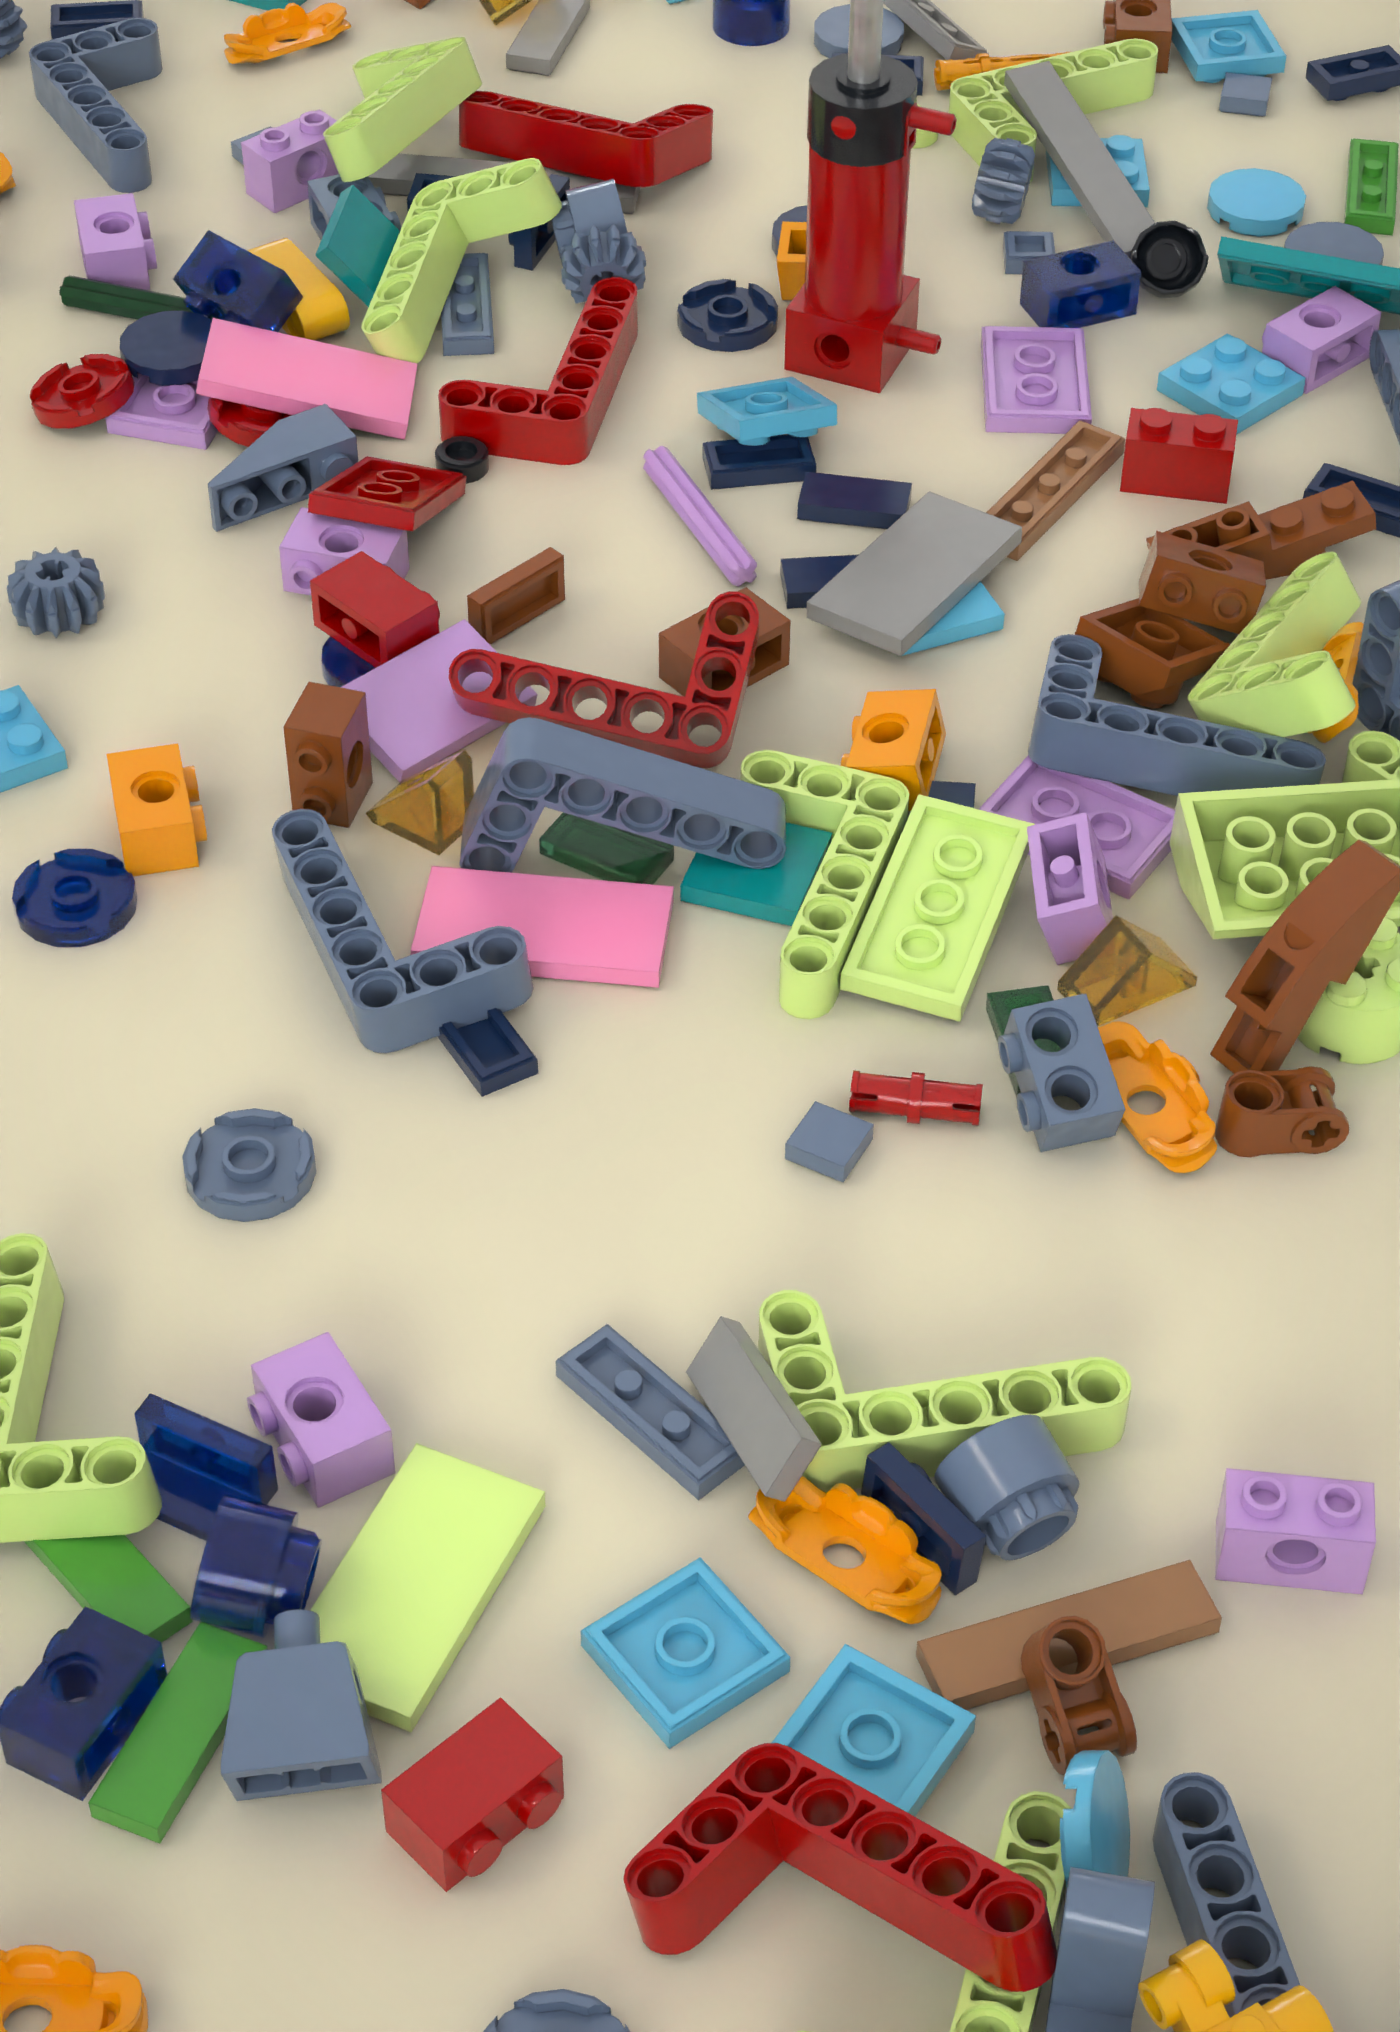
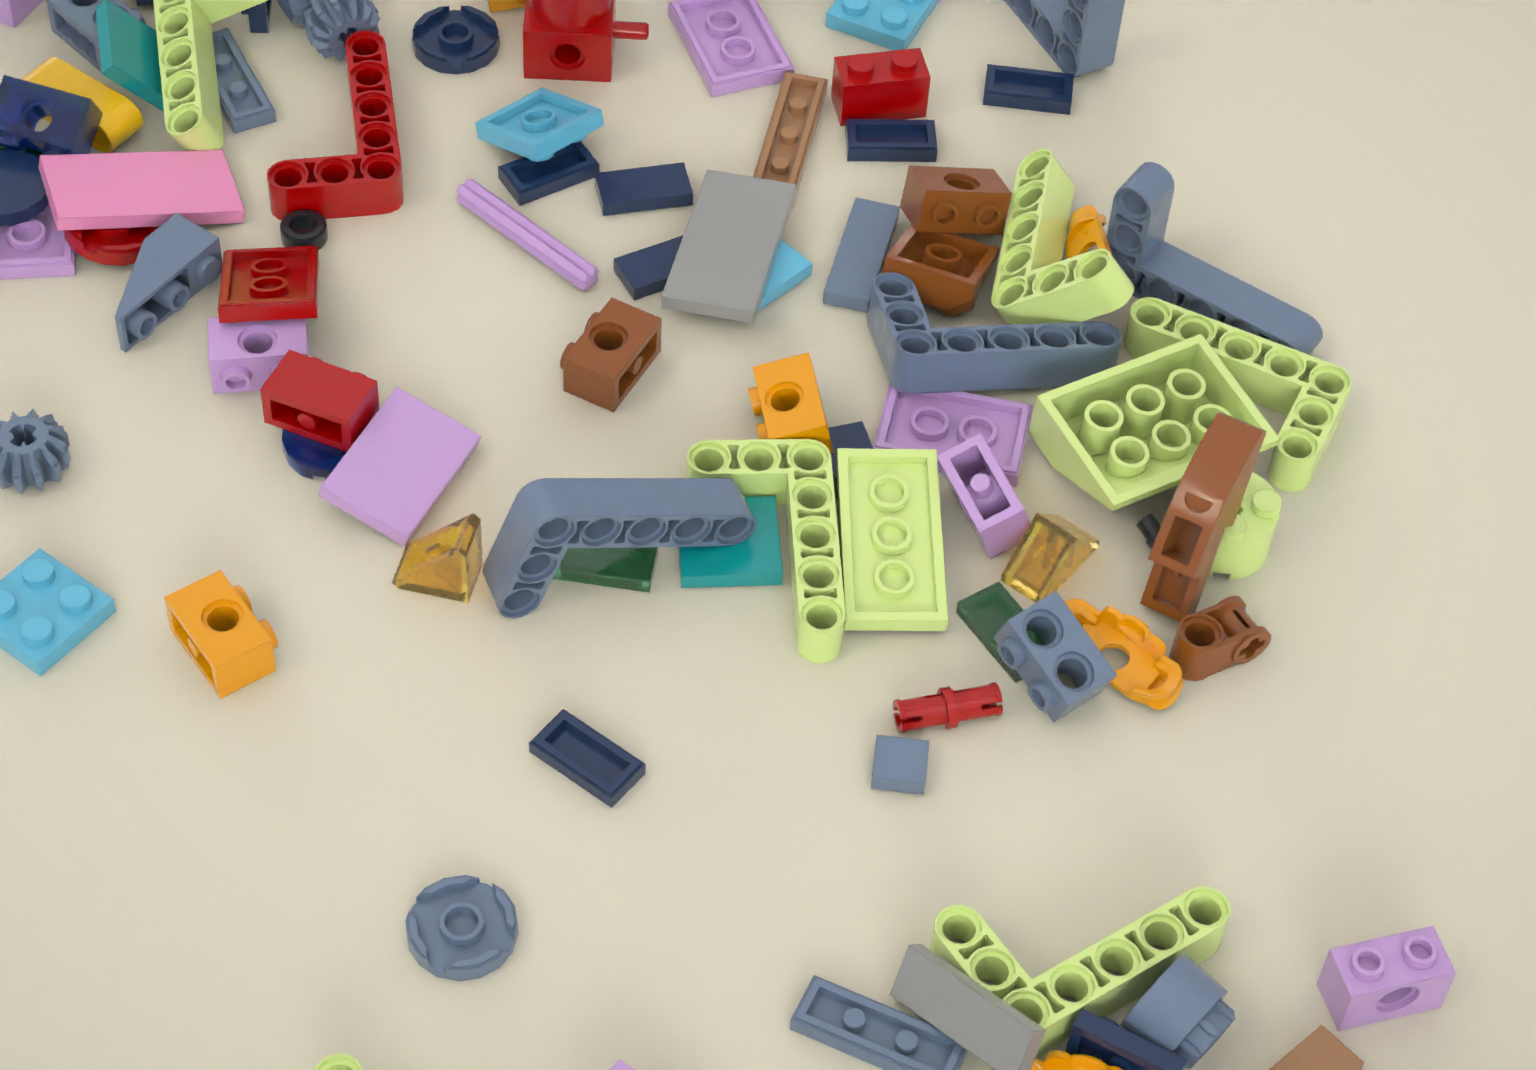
camera: 25 degrees left, 5 degrees up
(75, 898) = (190, 732): clear blue tile -> none
(329, 752) = (352, 544): dark orange brick -> none
(384, 998) = (462, 706): sand blue beam -> none
(517, 595) = (423, 349): dark orange tile -> none
(568, 924) = (588, 644): bright pink tile -> none
(624, 700) = (566, 429): red beam -> none
(1089, 591) = (861, 254): none -> sand blue tile
(1151, 509) = (891, 140): none -> dark blue tile
(1285, 534) = (989, 140): dark orange slope -> none

